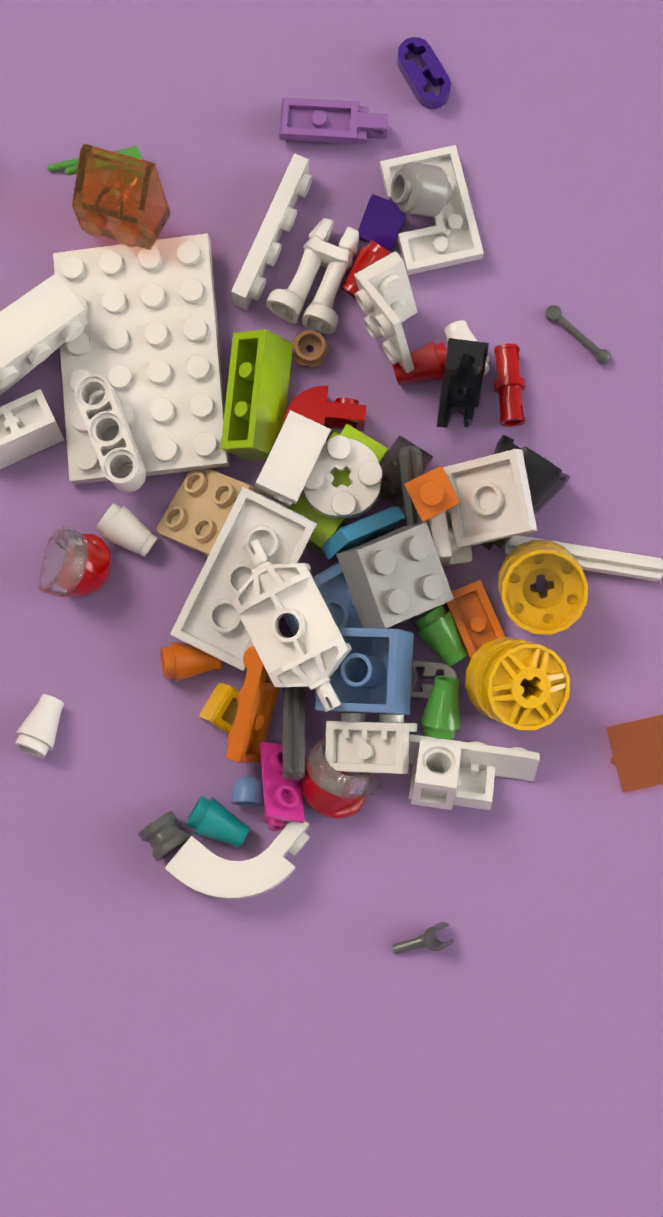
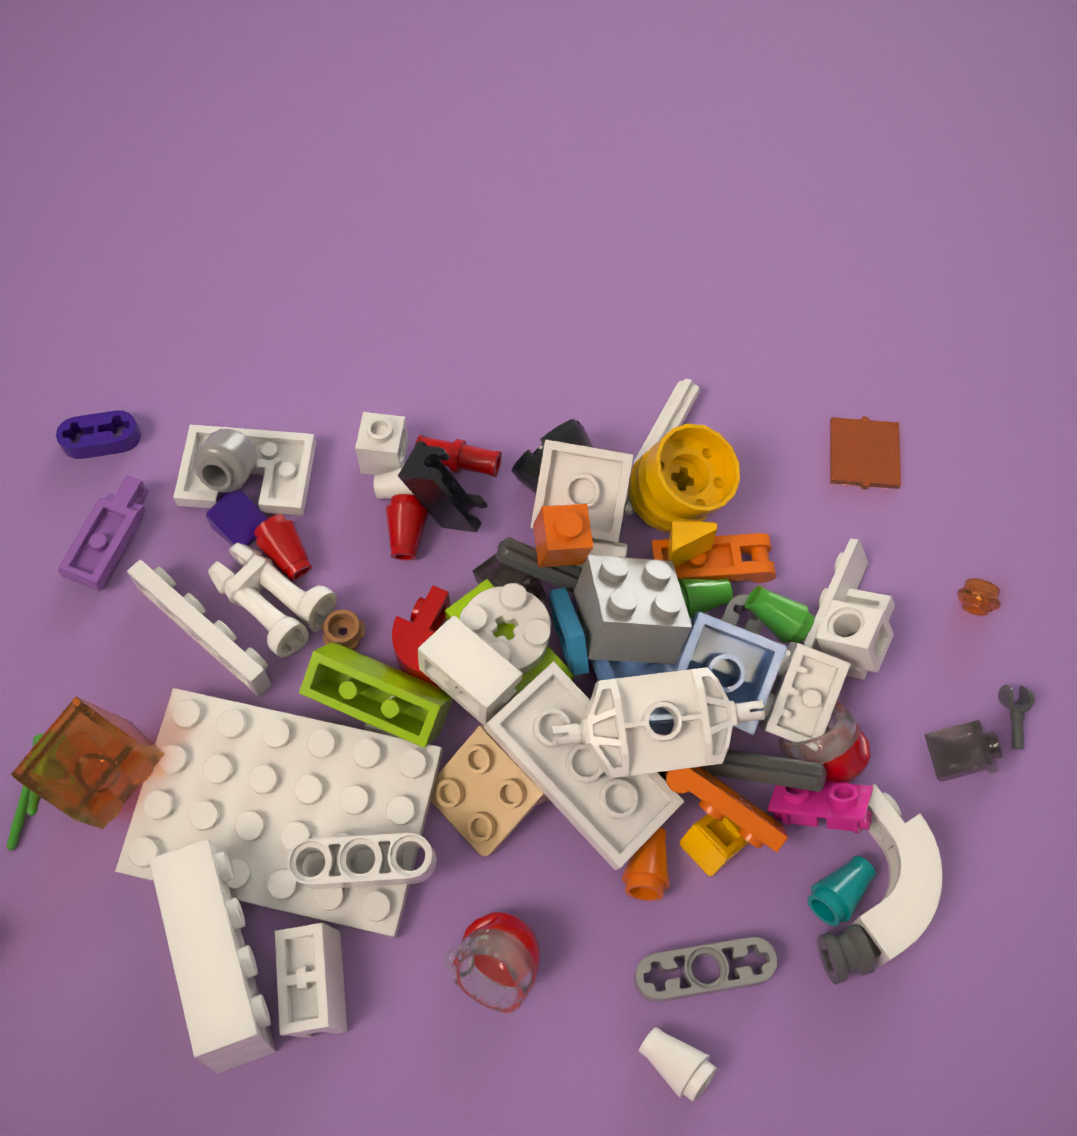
camera: 70 degrees left, 15 degrees down
(116, 697) = (738, 950): none -> light grey beam
(126, 530) = (474, 889): white cone -> none
(248, 792) = (815, 845): medium blue hinge -> none
(372, 900) = (963, 750): none -> clear smoke bracket
(387, 302) = (343, 536): white bracket -> none
(481, 608) = (690, 539): none -> yellow slope
(493, 315) = (381, 443): none -> white brick
(496, 677) = (776, 531): yellow wheel -> none
(527, 885) = (979, 597): none -> clear orange plate
(553, 315) = (399, 398): dark grey hinge -> none

